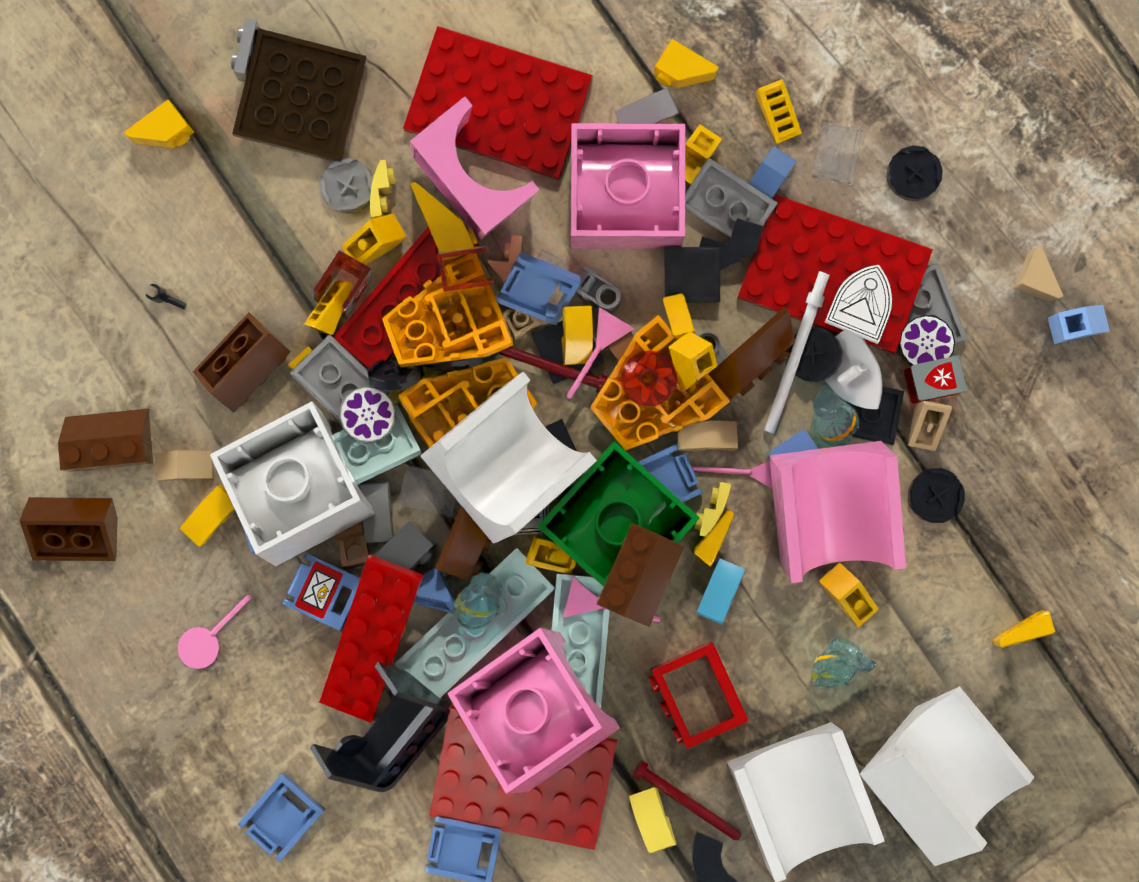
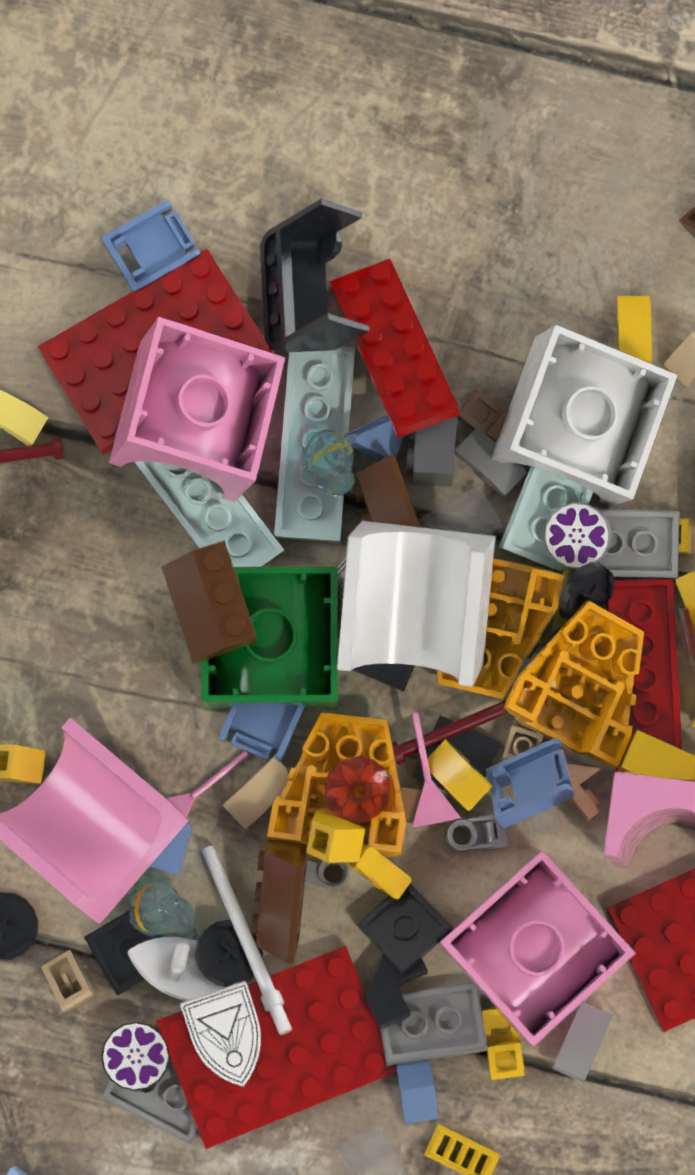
camera: 130 degrees right, 5 degrees down
(200, 646) = (537, 214): bright pink piece -> none
(279, 819) = (333, 133): medium blue container -> none
(318, 589) = (479, 351): container -> none
(463, 285) = (597, 722): clear red piece -> none
(548, 555) = (308, 552): yellow slope -> none
(583, 600) = (241, 547): bright pink piece -> none
(670, 707) = (54, 589): red window -> none
(683, 67) = (589, 1114): yellow slope -> none
(709, 517) = (193, 716): light yellow slope -> none
(709, 545) = (171, 699): yellow slope -> none
(720, 591) = (124, 664): medium azure slope -> none
(935, 379) = (97, 1027): piece -> none

